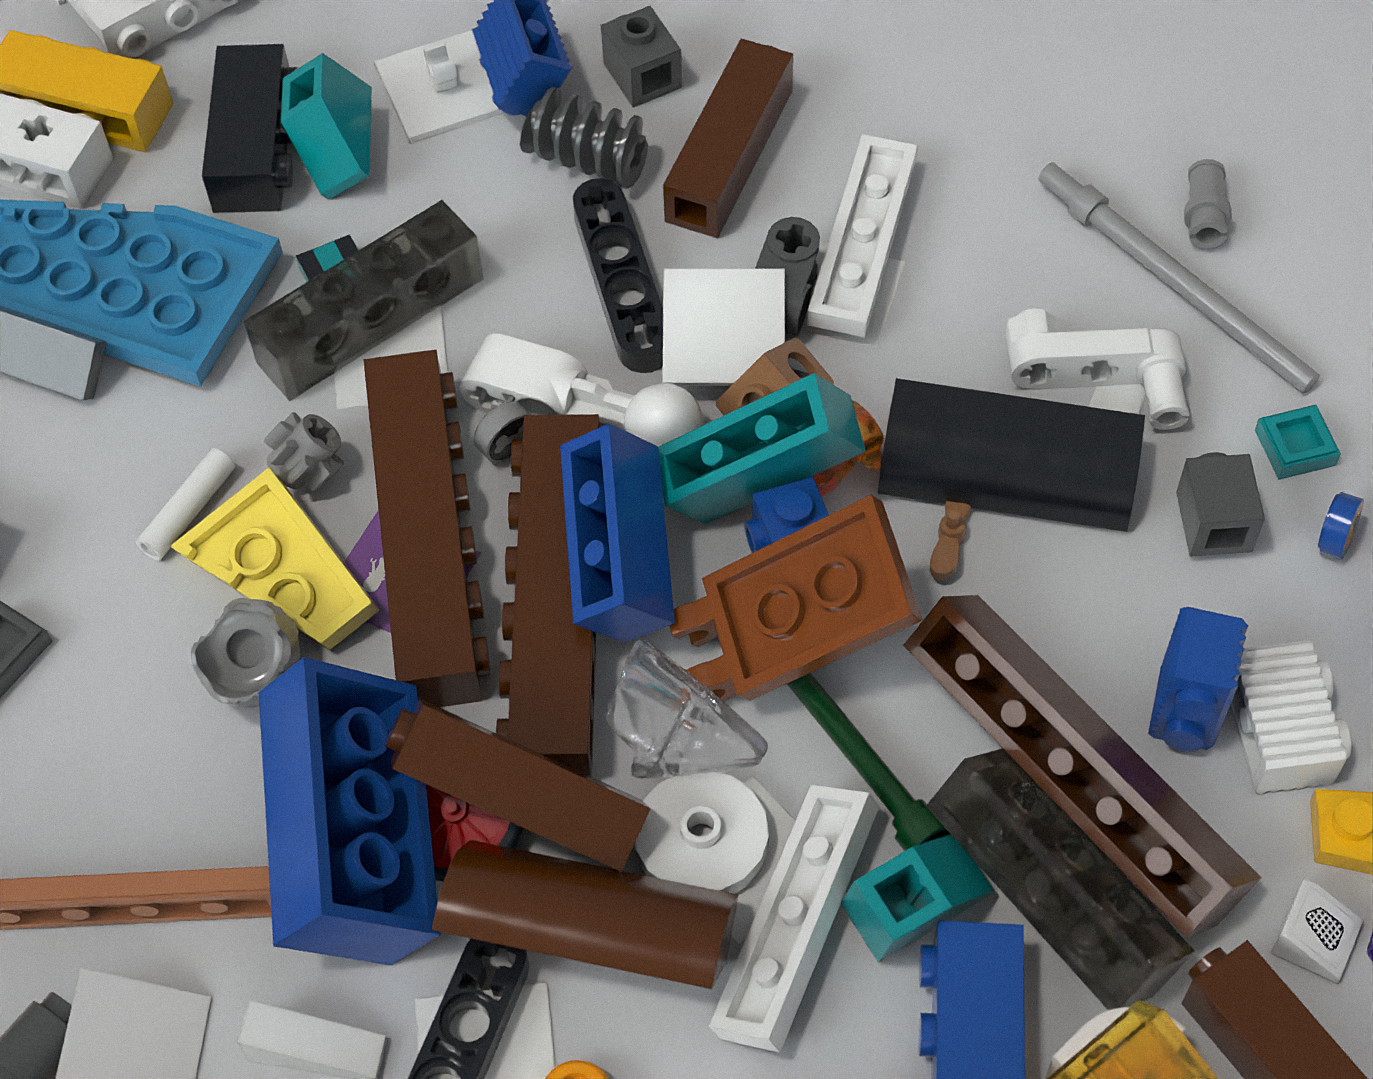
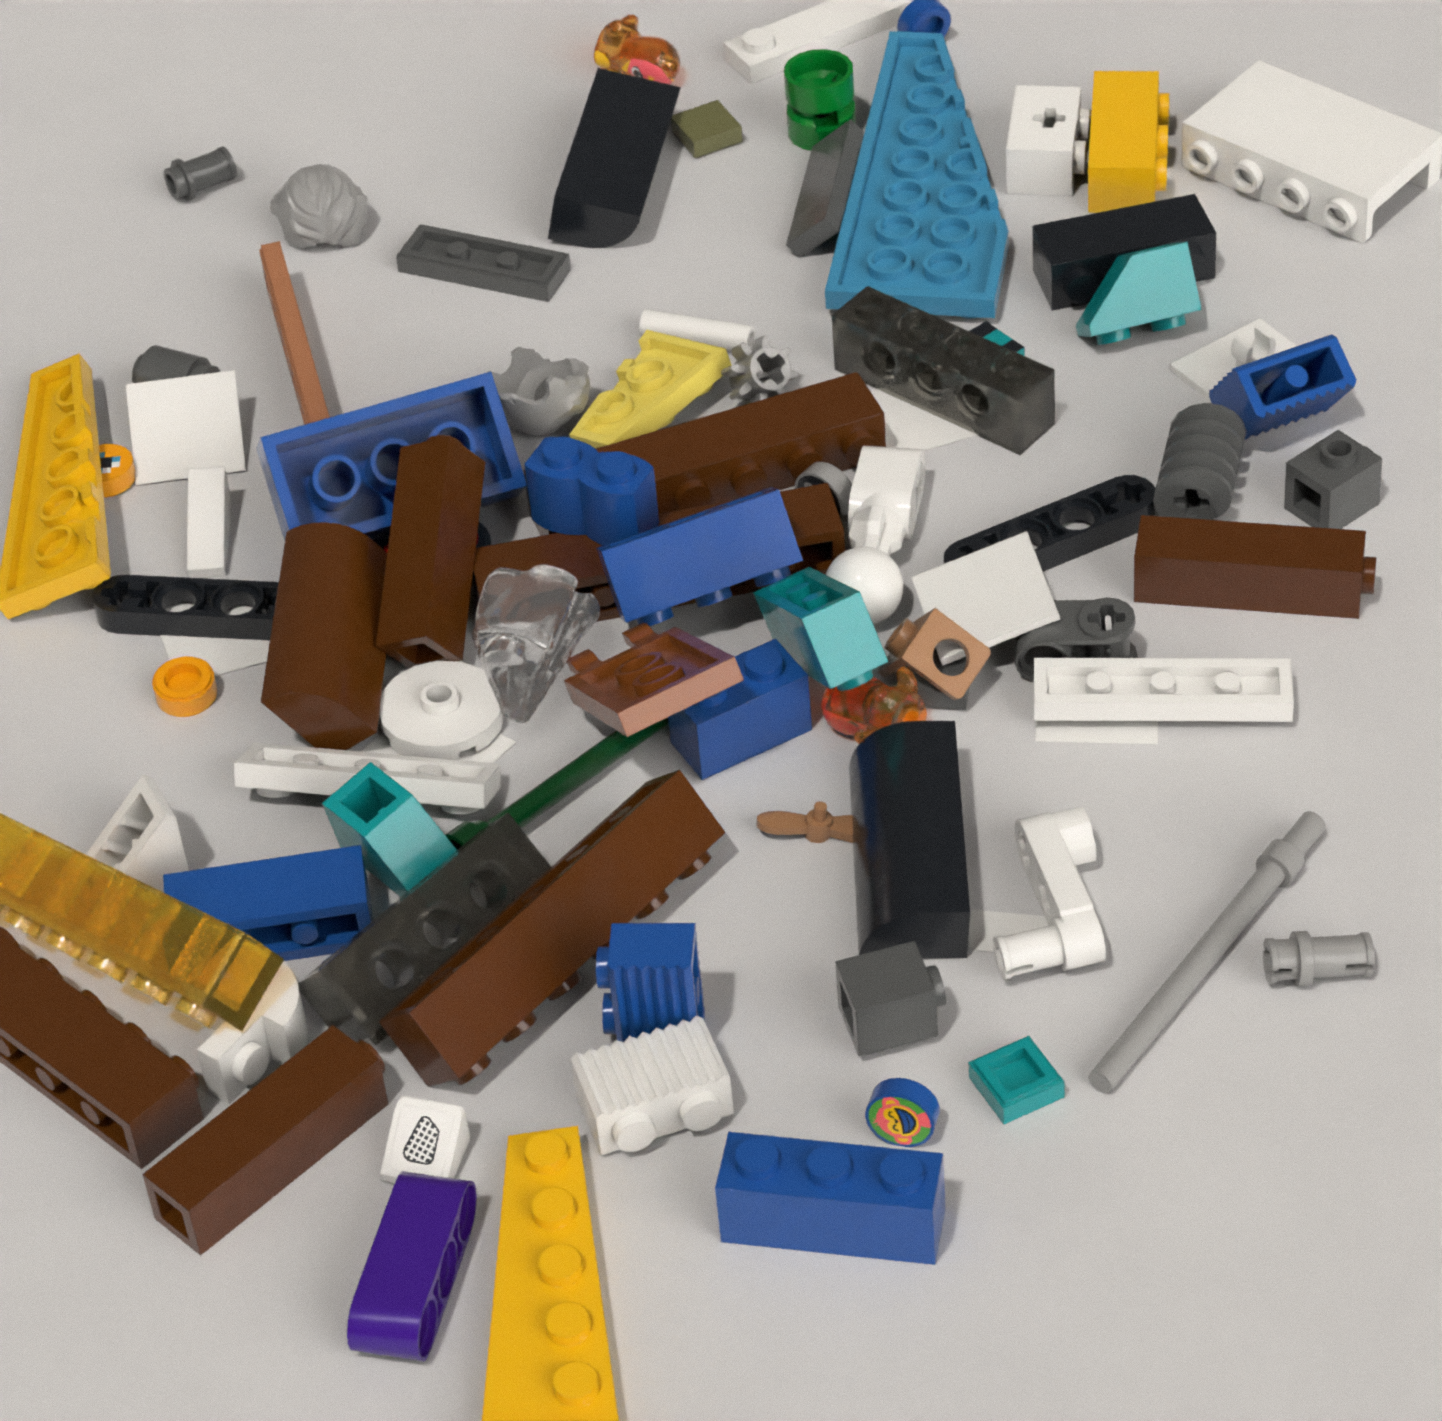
camera: 80 degrees right, 15 degrees down
(510, 601) = (590, 491): none -> blue brick

